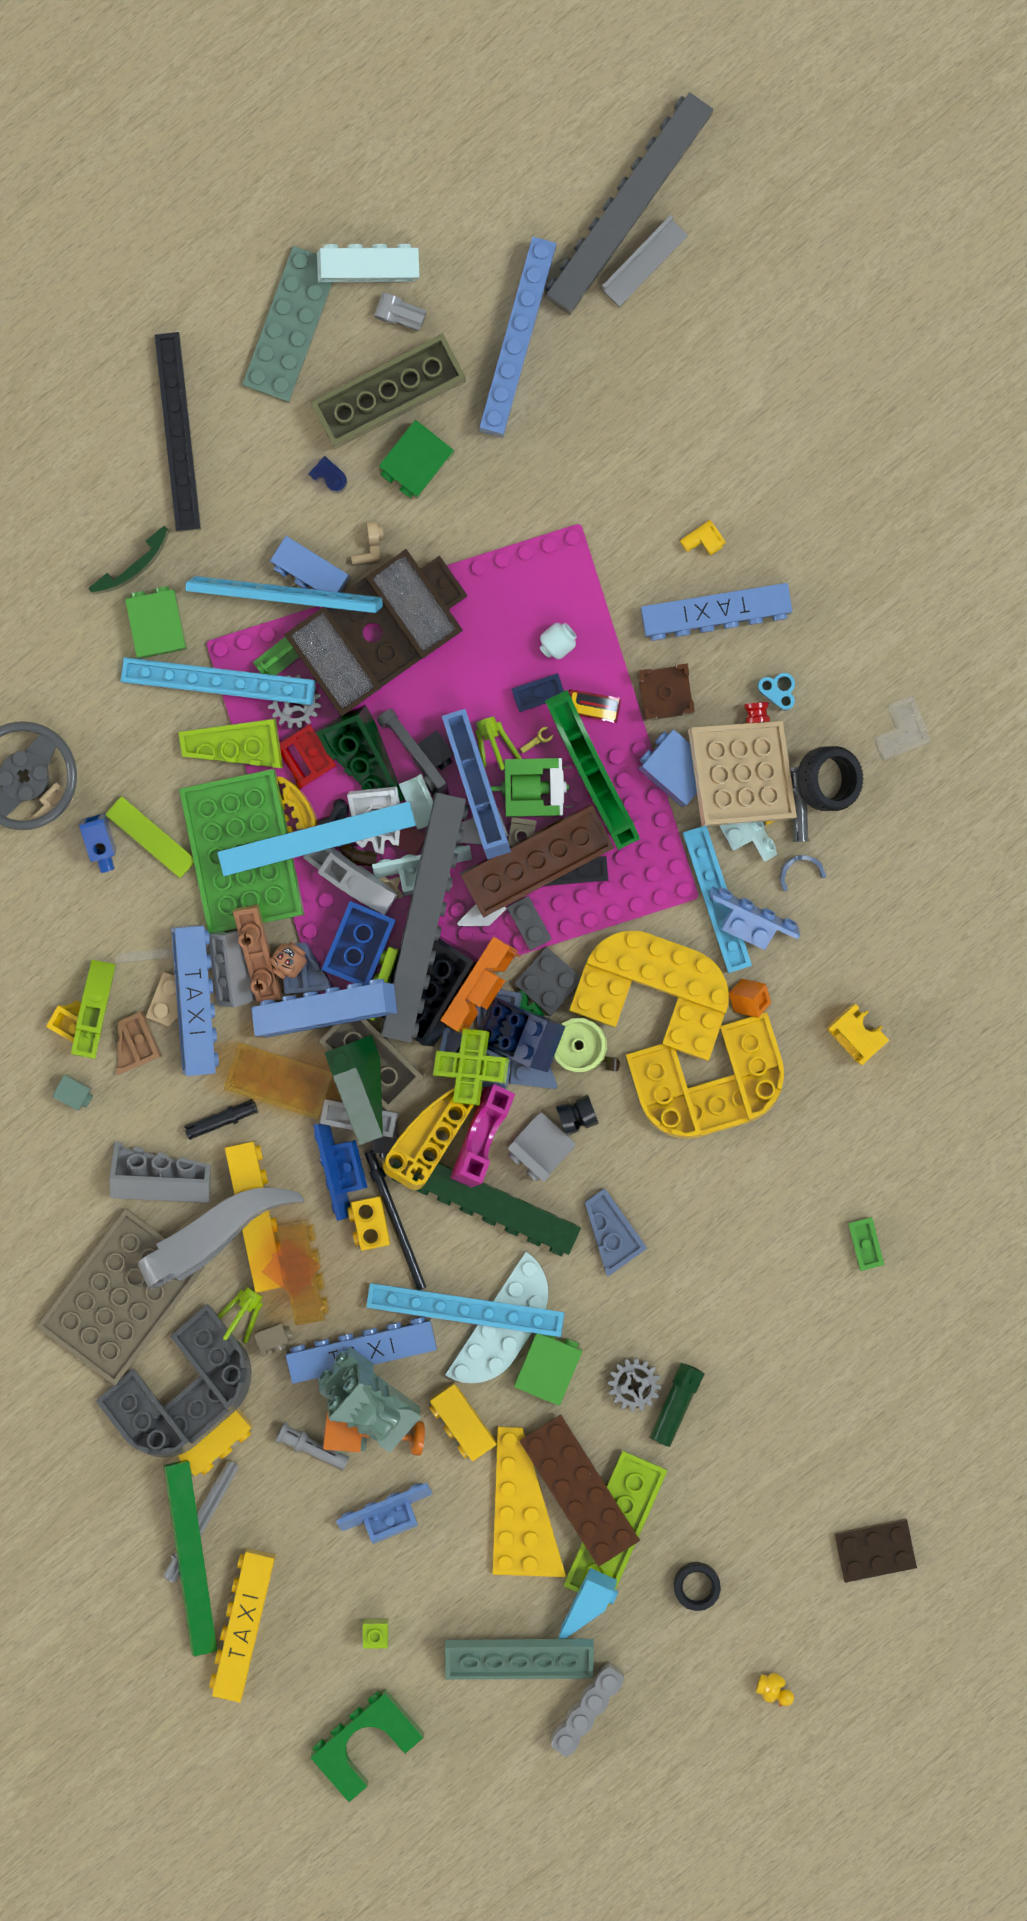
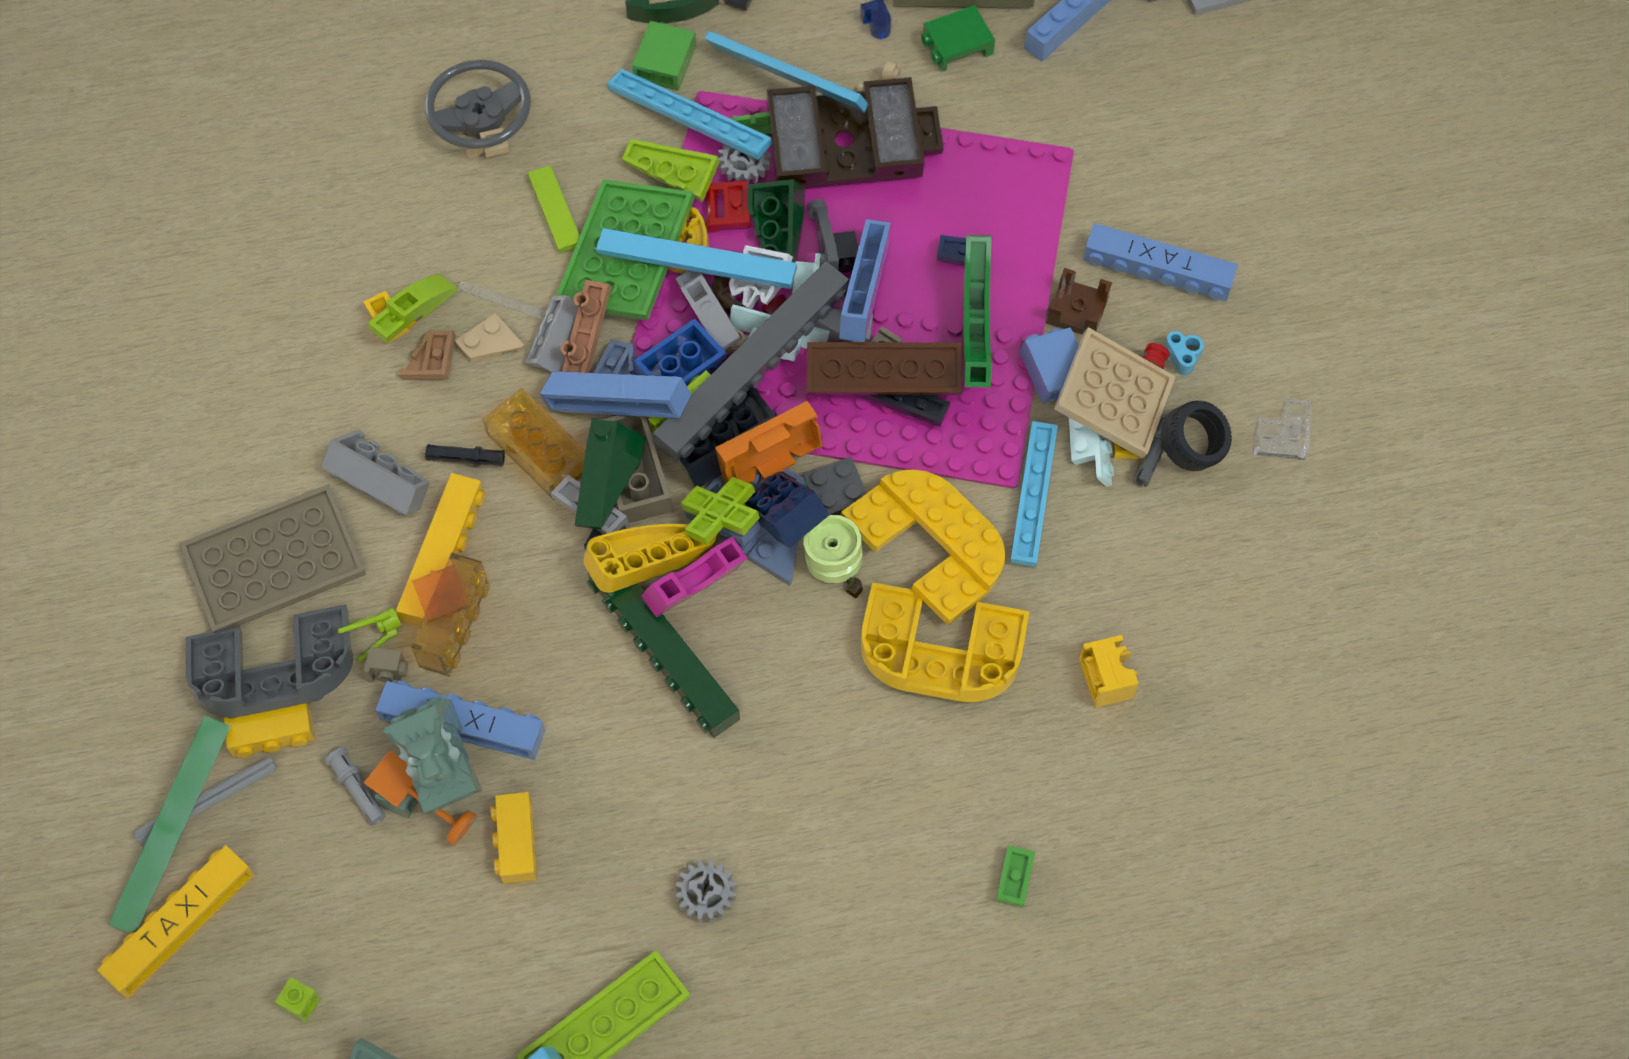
camera: 30 degrees right, 25 degrees down
(73, 1093) = (349, 367): sand green brick -> none
(94, 831) = (508, 181): blue torso -> none
(193, 1000) = (504, 342): medium blue brick -> none
(209, 1235) = (378, 540): light grey animal -> none
(288, 960) = (609, 347): nougat head -> none
(308, 568) = (813, 59): medium blue brick -> none
(341, 1167) = (545, 549): blue bracket -> none
(376, 1222) = (547, 610): yellow brick -> none
(377, 1174) = (575, 574): black bar -> none
(387, 1516) = (386, 888): medium blue bracket -> none
(465, 1309) = (584, 730): medium azure plate -> none
(475, 918) = (799, 396): white tile -> none
(489, 730) = (901, 260): lime plant -> none
(493, 1349) = (610, 771): light aqua plate -> none
(521, 1524) = (513, 972): yellow wing -> none
(528, 788) = (911, 309): bright green piece -> none
(529, 923) = (846, 427): dark grey plate -> none
(538, 739) = (944, 289): light yellow hand -> none
(540, 1147) = (743, 624): light grey bracket -> none
(548, 1367) = (631, 829): bright green brick -> none
(558, 640) = (1003, 218): light aqua head -> none
(577, 1115) = (805, 611): black wheel -> none
(579, 1490) = (589, 966): reddish brown plate -> none
(596, 705) = (1009, 285): slope -> none
(613, 1232) = (768, 737): sand blue wing -> none
(676, 1404) = (737, 933): dark green piece -> none
(707, 536) = (1182, 206): yellow piece -> none
(750, 998) = (1019, 592): orange panel -> none
(751, 922) = (1054, 523): medium blue bracket -> none
(799, 857) = (1124, 494): sand blue helmet -> none

